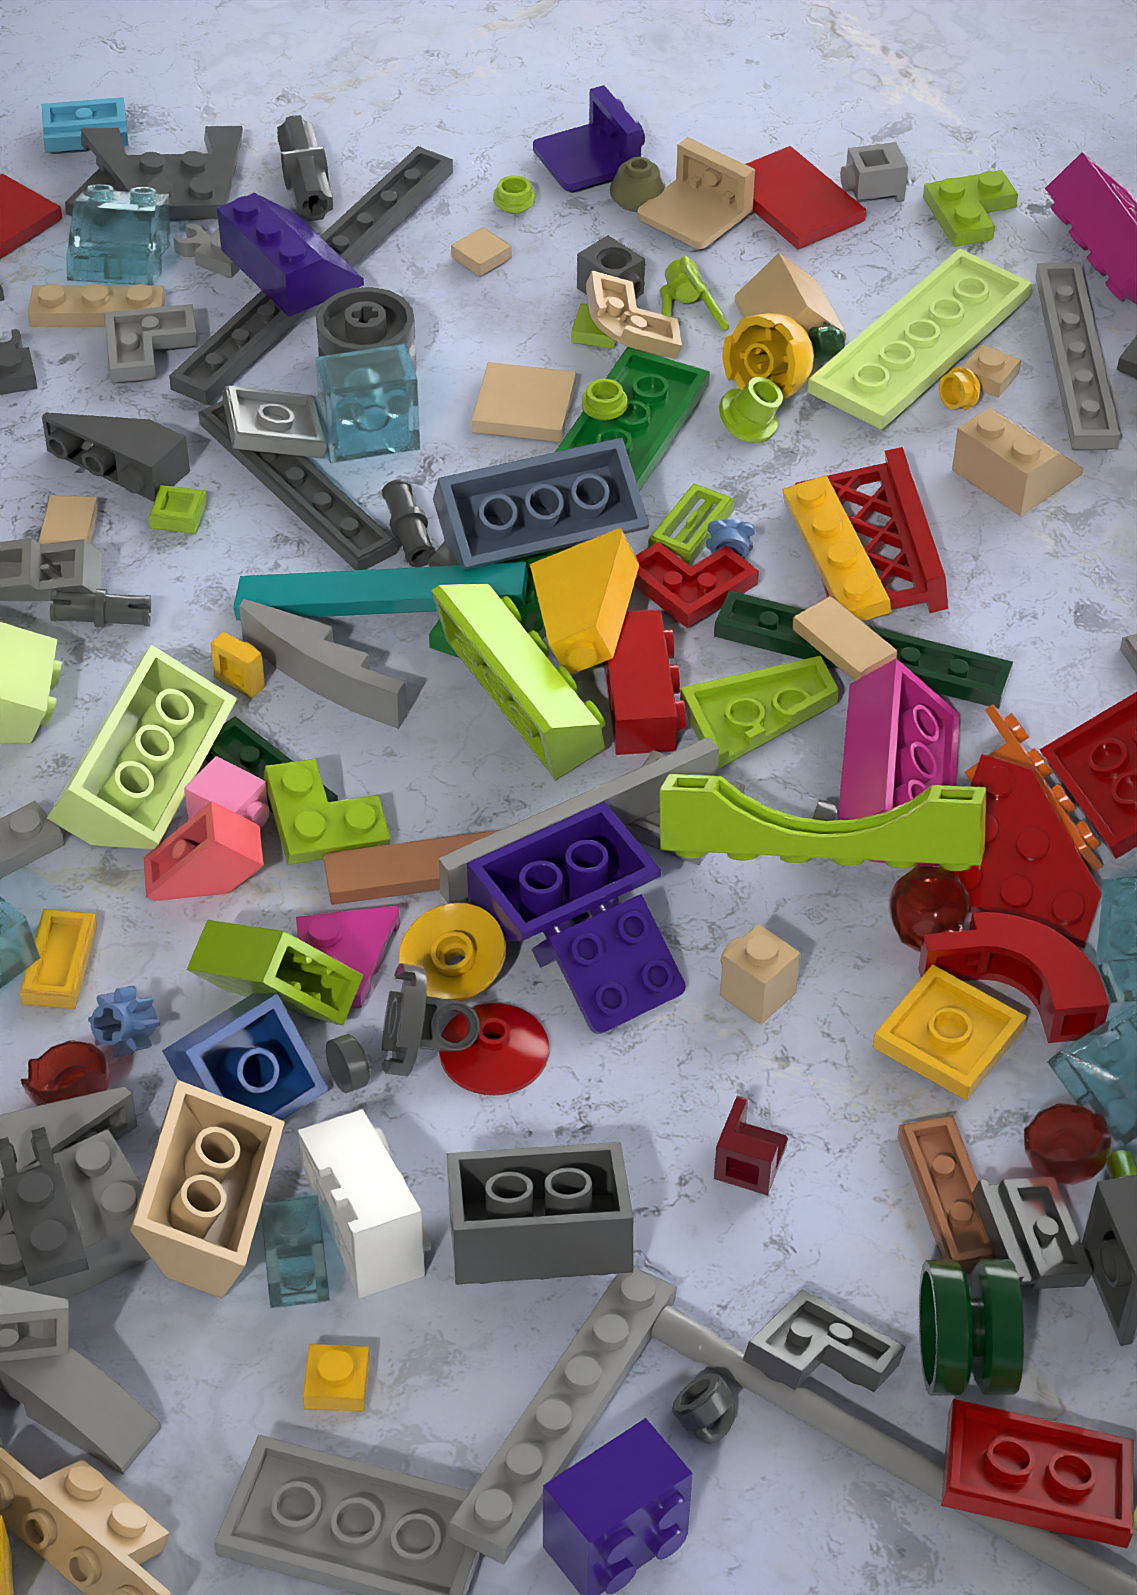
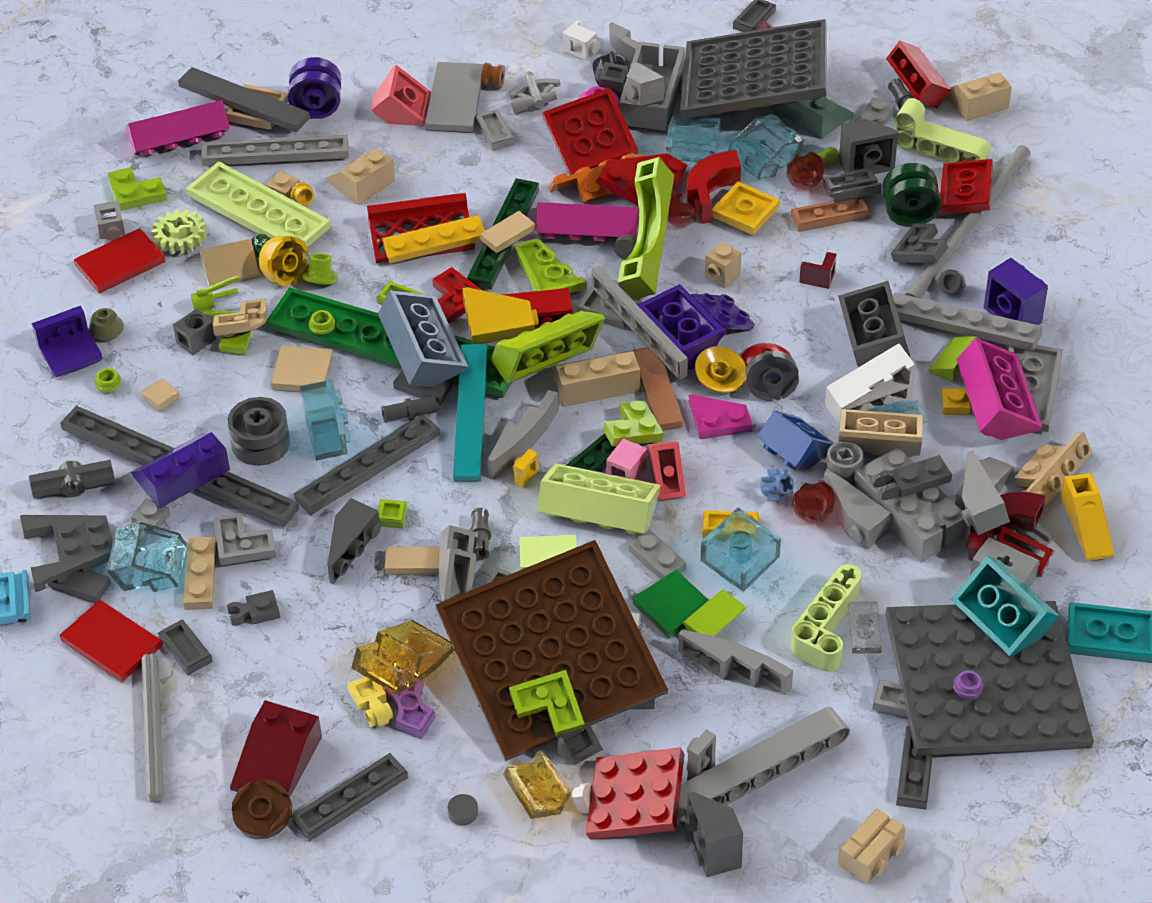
camera: 90 degrees left, 0 degrees up
(136, 1120) = (844, 459): none -> light grey wheel
(273, 961) = (746, 427): lime slope -> none
(274, 421) = (326, 469): light grey tile -> none
(304, 1433) = (997, 391): none -> dark pink slope
(347, 1063) = (790, 403): dark grey tile -> none
(465, 763) = (597, 378): none -> tan slope
(467, 1389) = (946, 364): none -> lime slope
(705, 198) = (126, 294): tan bracket -> none
(731, 534) = (424, 279): medium blue plate -> none
(853, 249) = (179, 231): none -> yellowish green gear

